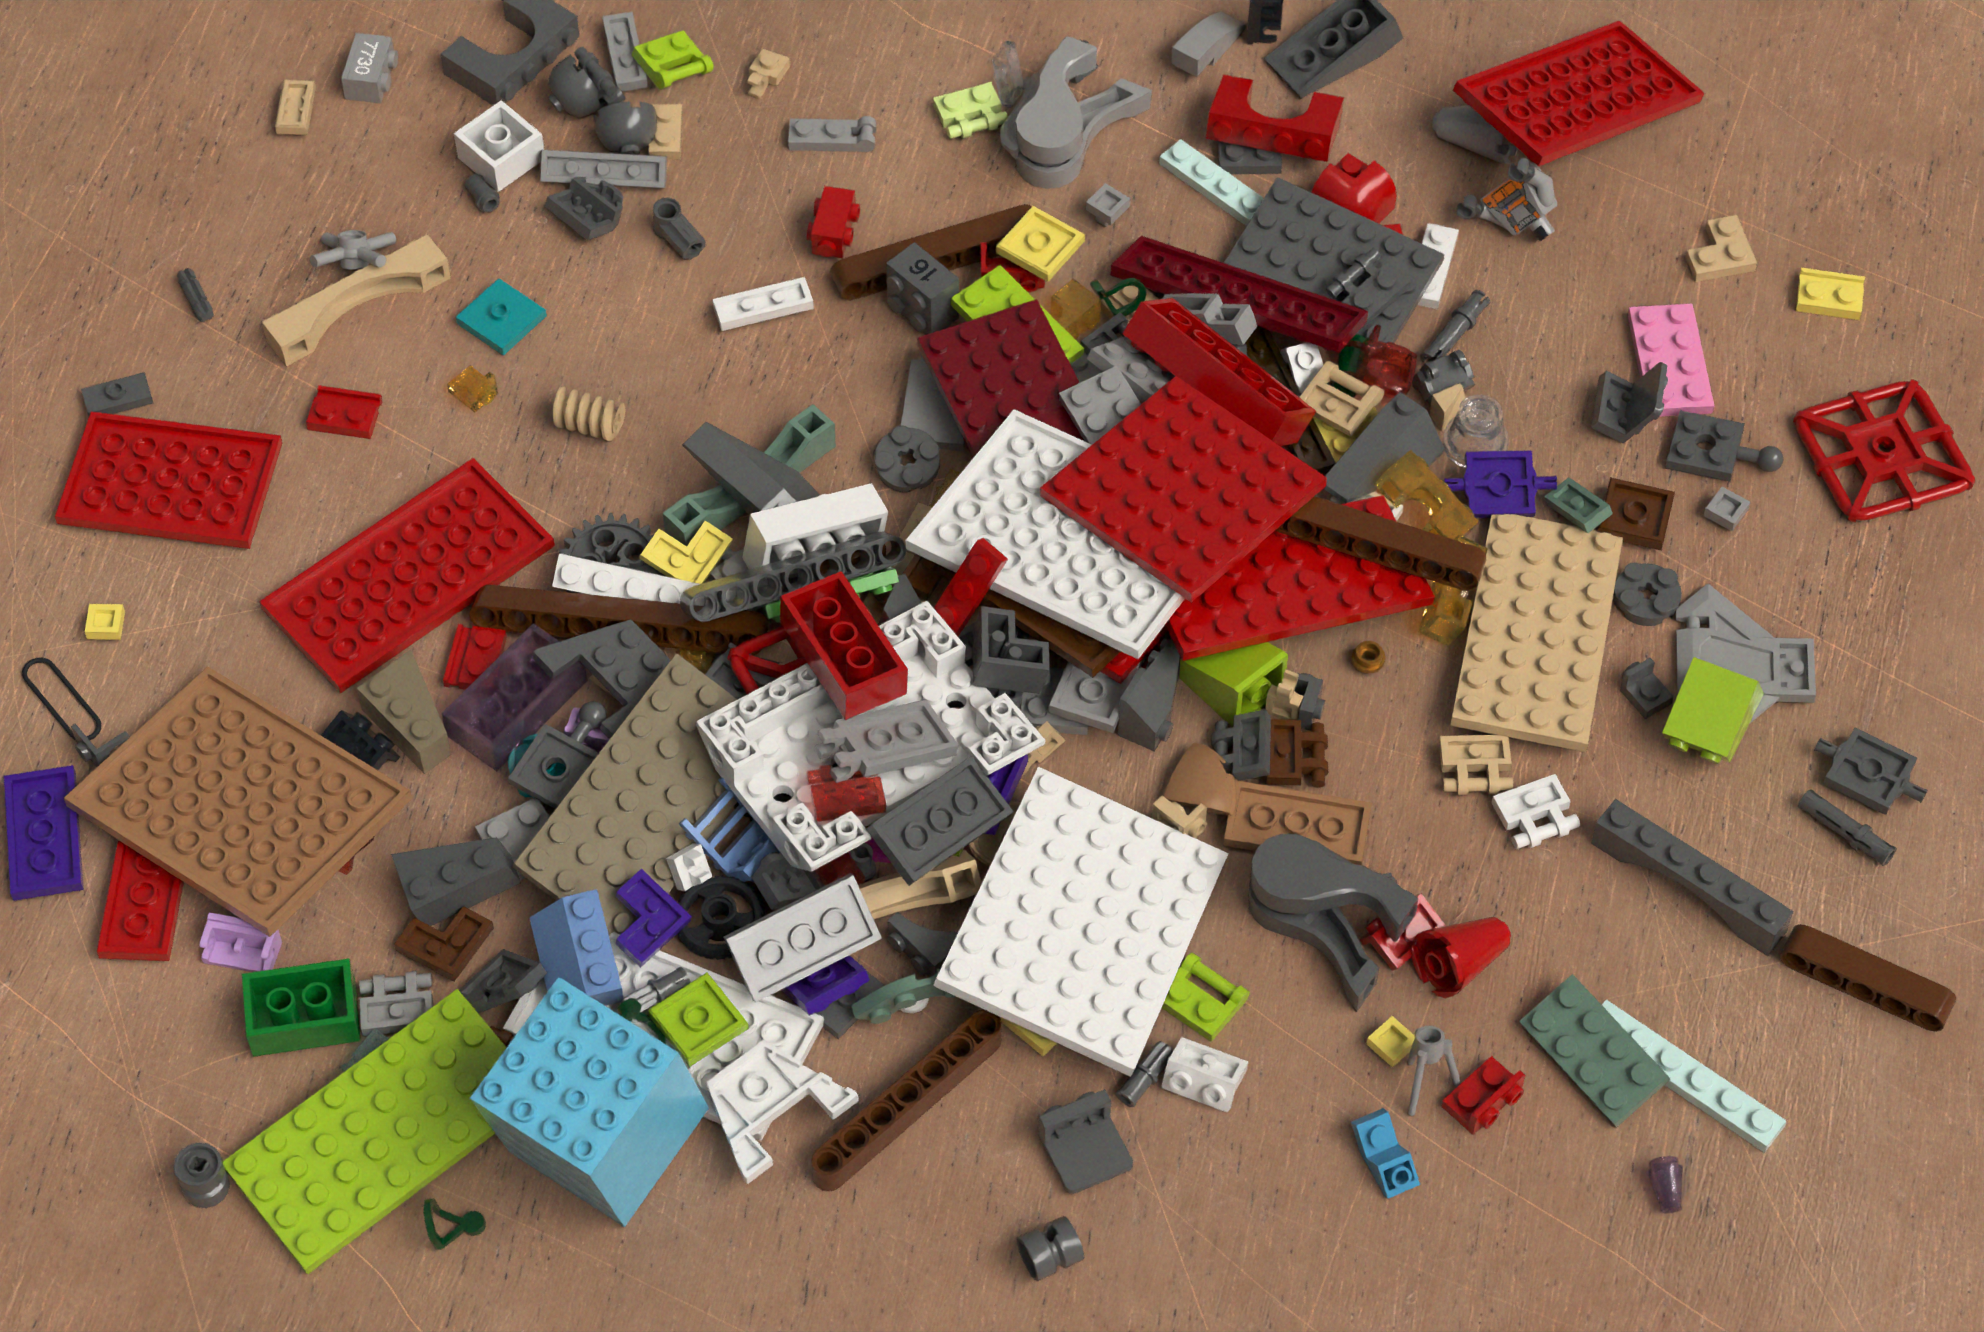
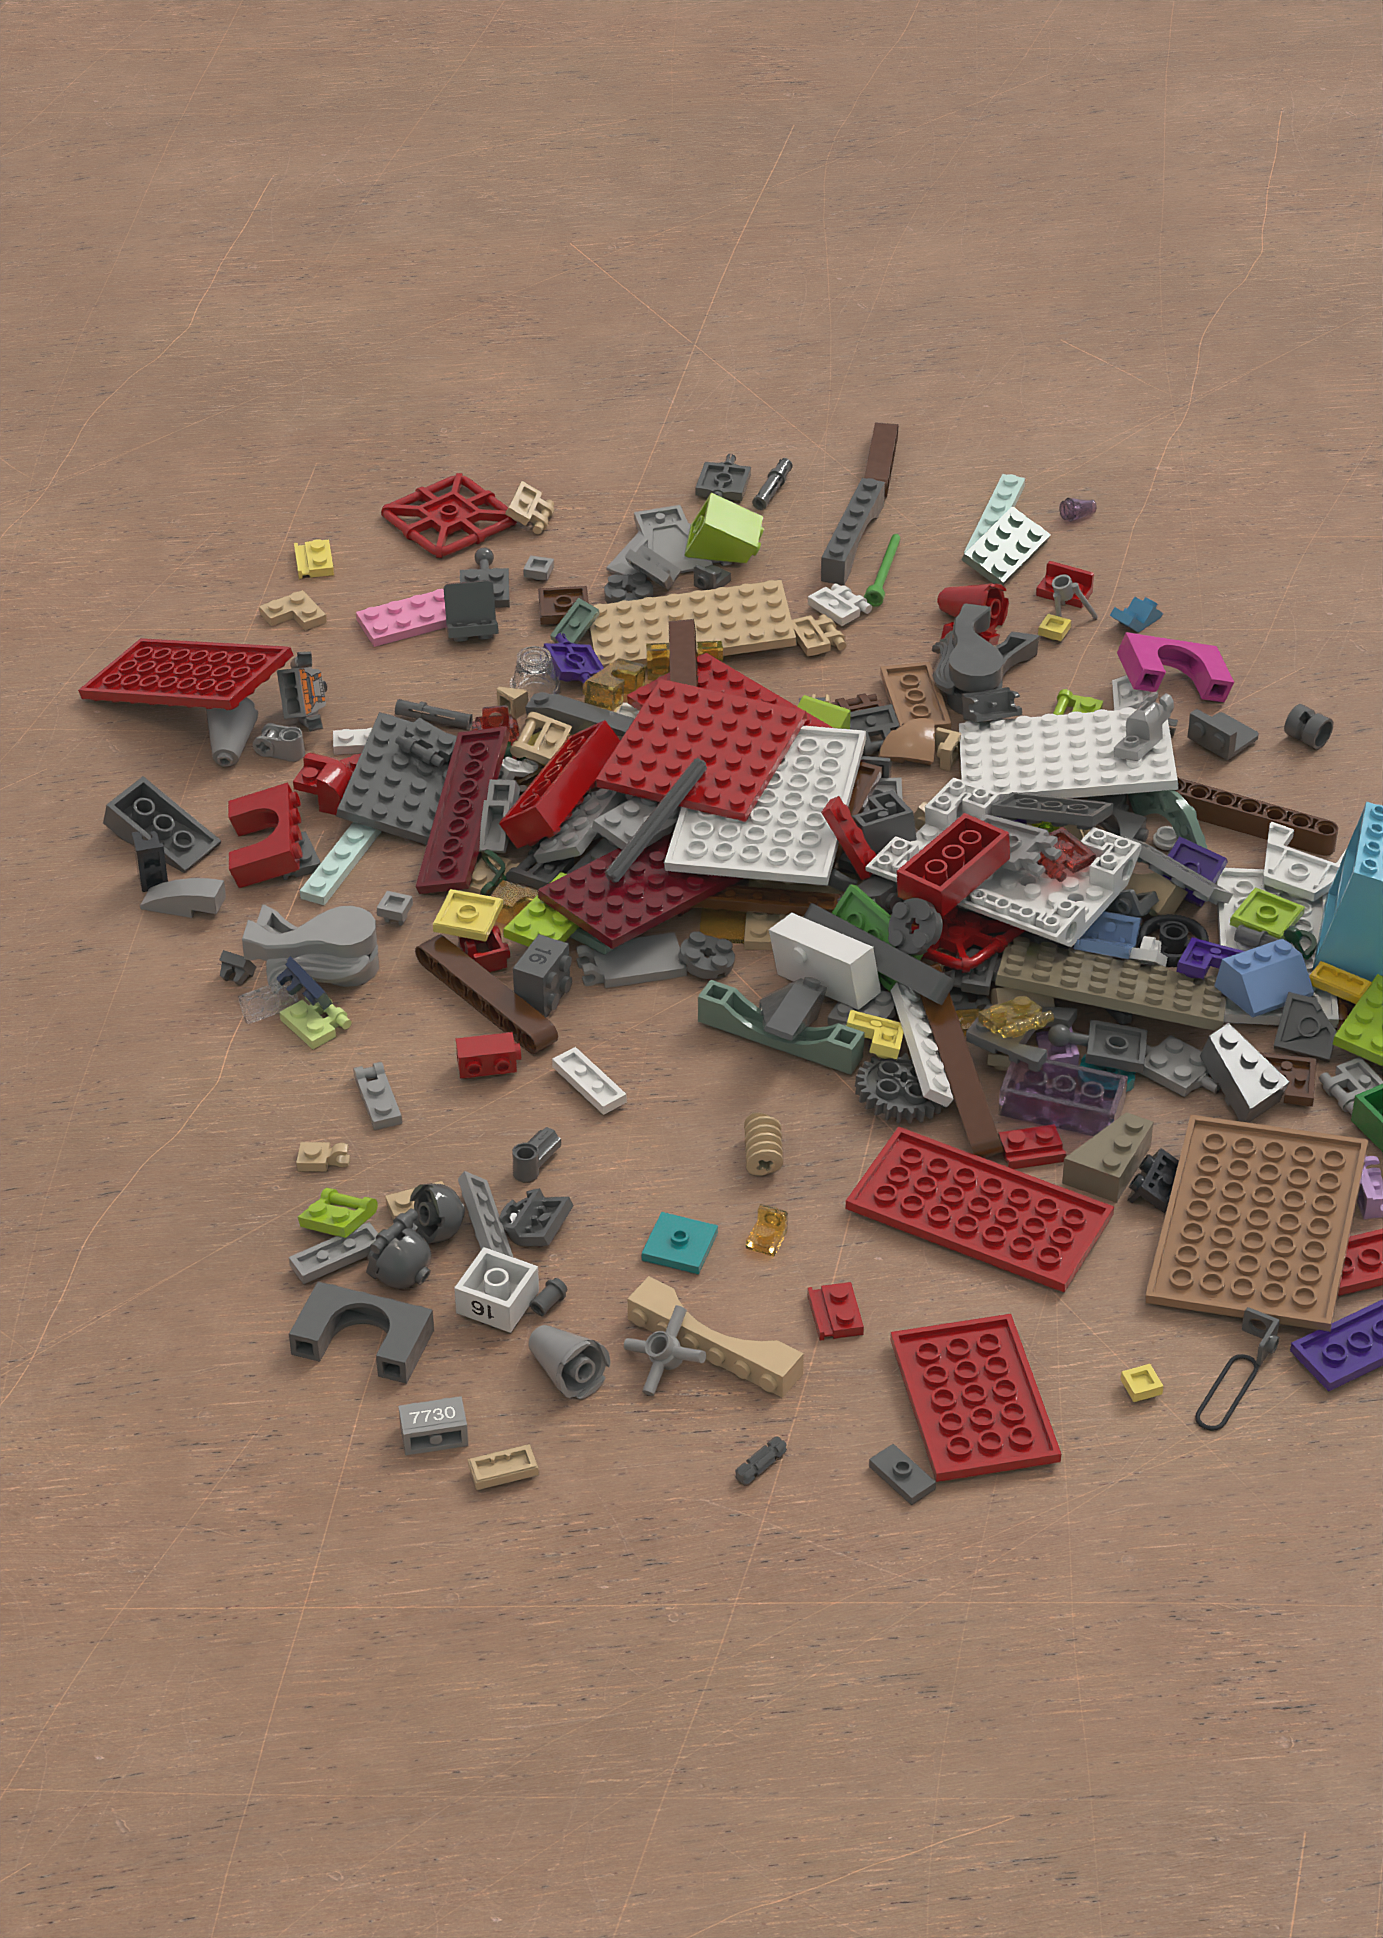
camera: 110 degrees left, 15 degrees down
(387, 174) = (570, 1360): none -> light grey cone
(624, 658) = (1015, 1017): none -> clear yellow plate
(766, 598) = (902, 919): none -> dark grey plate
(993, 89) = (301, 979): none -> dark blue plate
(1049, 980) = (1144, 727): none -> light grey plate
(1071, 406) = (655, 820): none -> dark grey axle
(1224, 881) = (990, 705): none -> dark grey hinge
(1236, 1176) = (1145, 656): none -> dark pink arch
(1443, 374) = (479, 700): dark grey piece -> none
(1452, 177) = (282, 742): none -> light grey piece
(1544, 860) = (875, 593): none -> bright green piece
(1669, 614) = (653, 566): none -> light grey bracket
(1864, 519) = (524, 504): none -> tan plate

